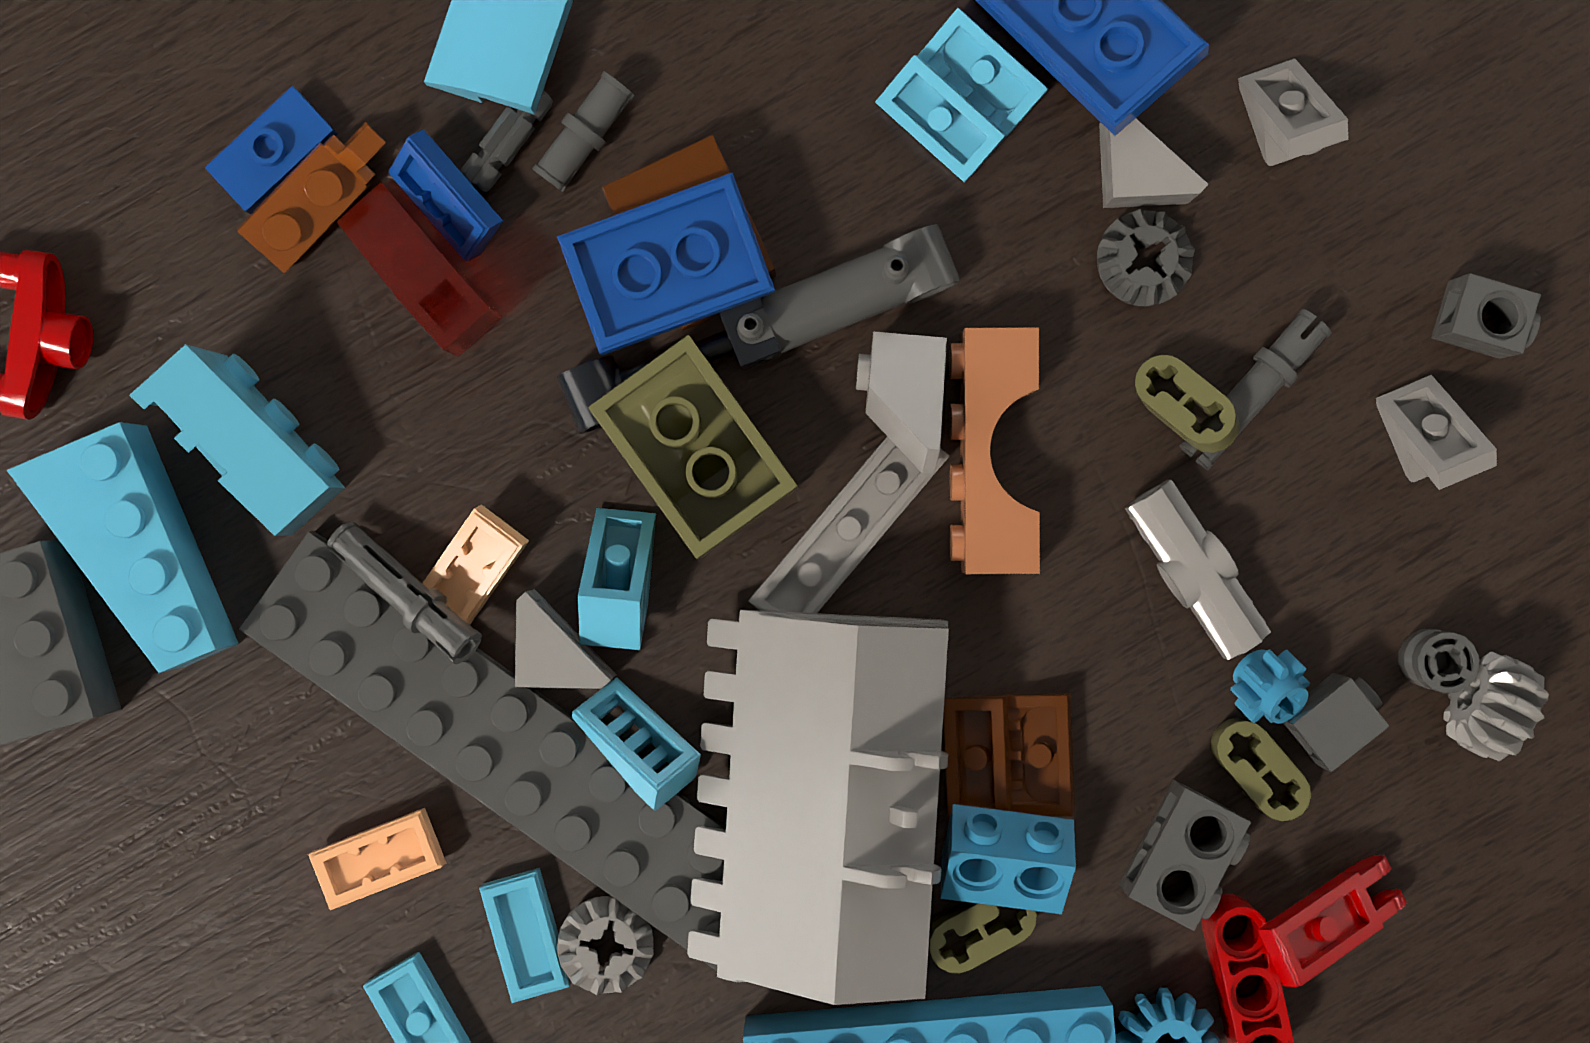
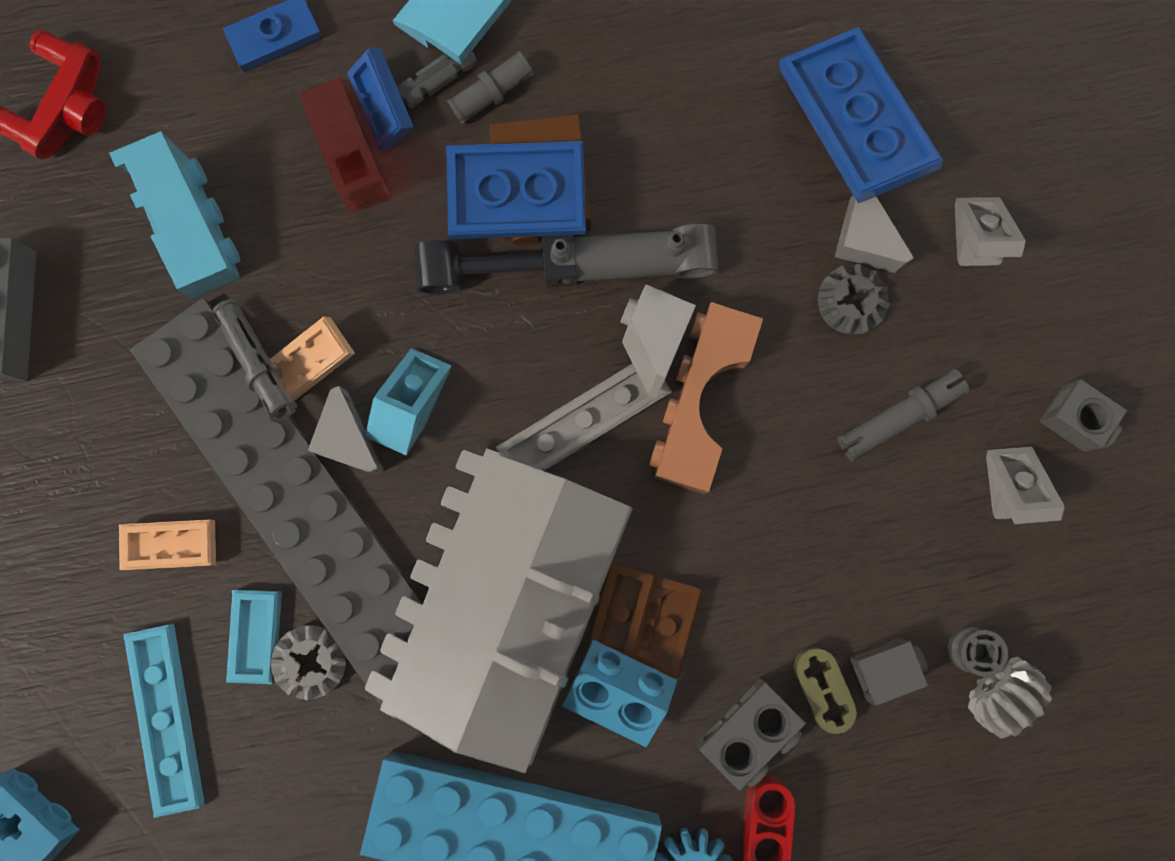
camera: 15 degrees right, 5 degrees down
(131, 540) = (77, 263): medium azure wedge -> none
(312, 197) = (288, 71): dark orange hinge -> none
(638, 772) = (388, 549): medium azure slope -> none
(693, 447) = (492, 325): olive slope -> none
(962, 95) = (760, 147): medium azure slope -> none
(981, 946) = (584, 753): olive beam -> none
(1195, 392) = (859, 402): olive beam -> none
(1198, 570) = (823, 530): light grey piece -> none
(1270, 686) = (850, 630): dark azure gear -> none
(1330, 922) = (840, 818): red hinge -> none

